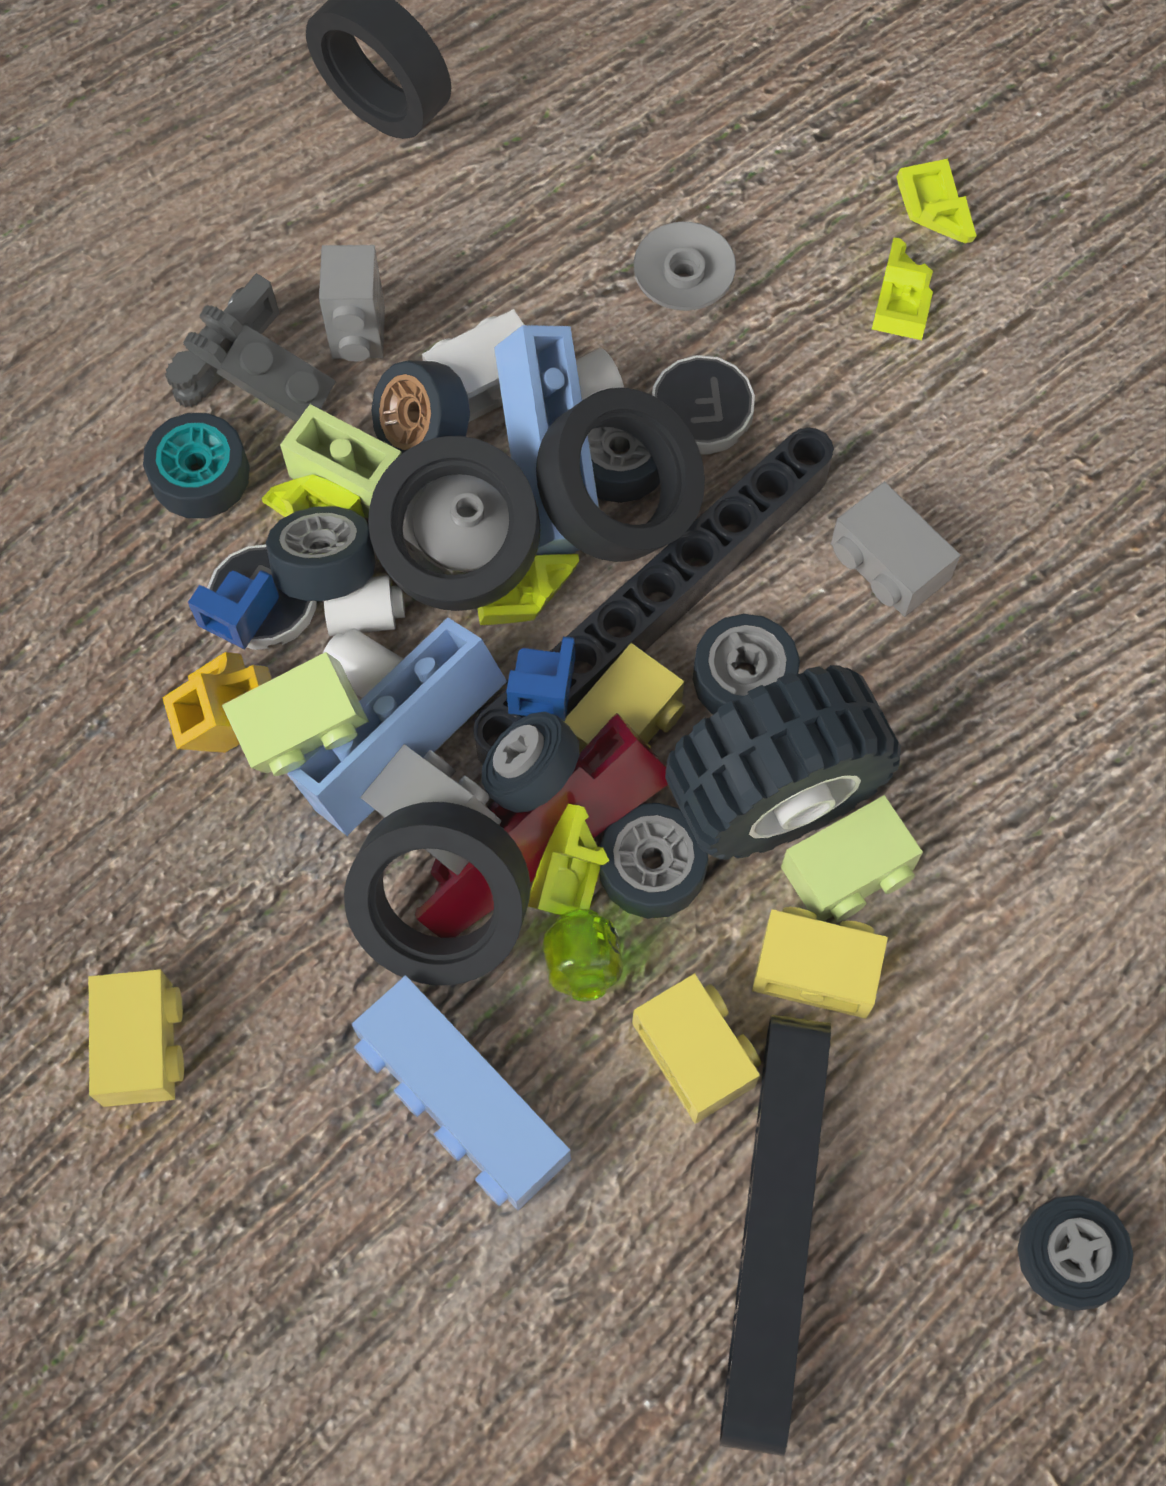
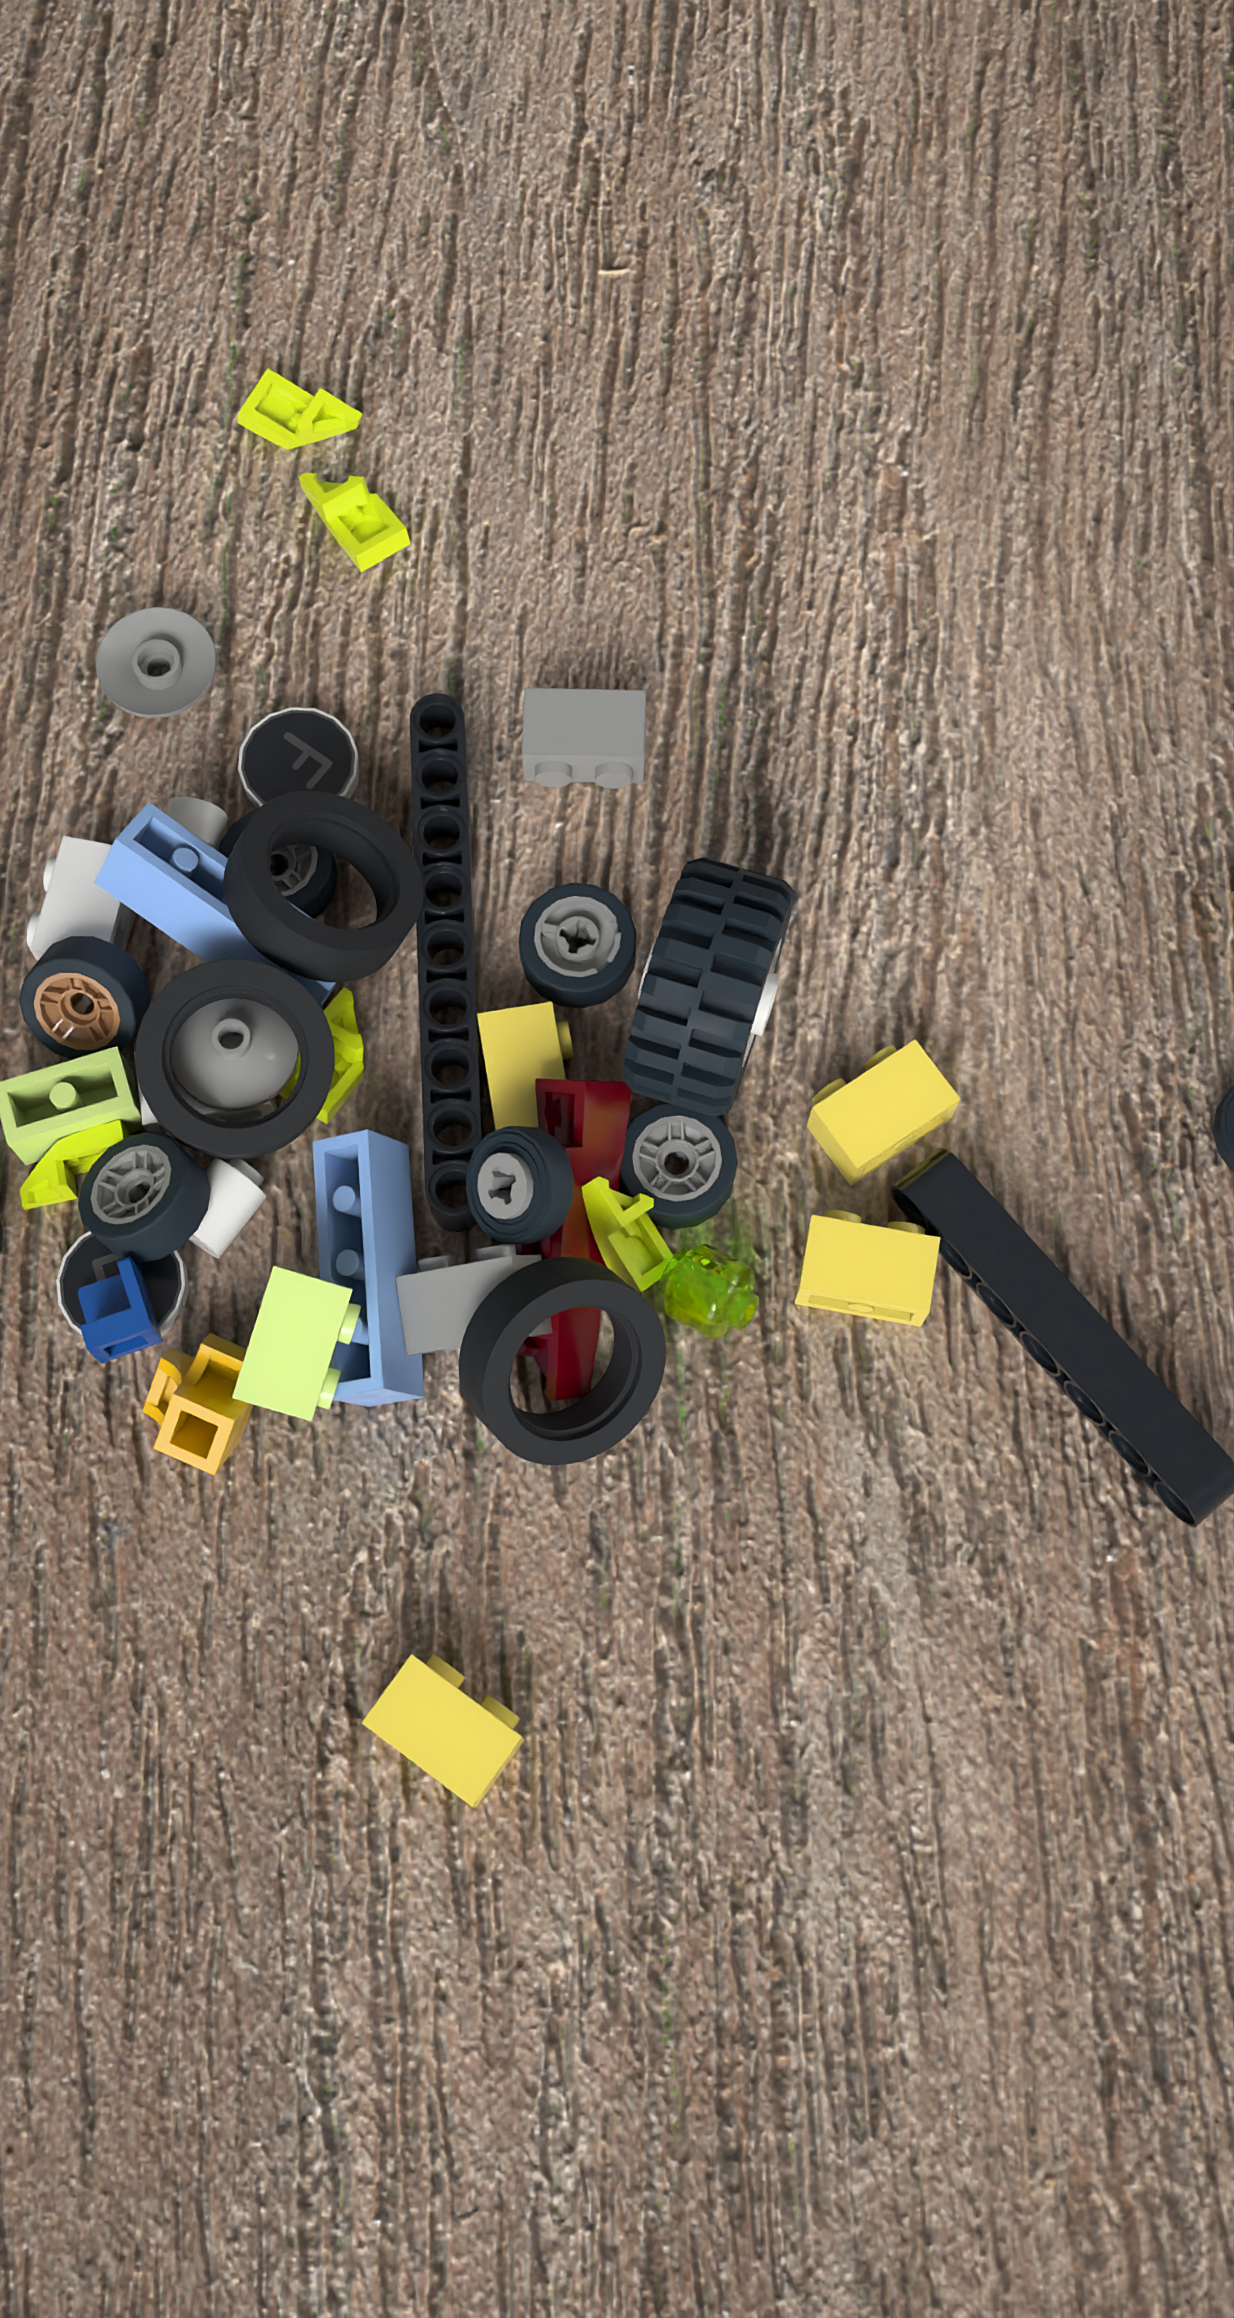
camera: 50 degrees left, 5 degrees up
(362, 659) = (283, 1243): white brick -> none
(461, 1093) = (739, 1491): light blue brick -> none
(542, 681) = (450, 1112): blue panel -> none
(852, 861) = (821, 1009): yellowish green brick -> none

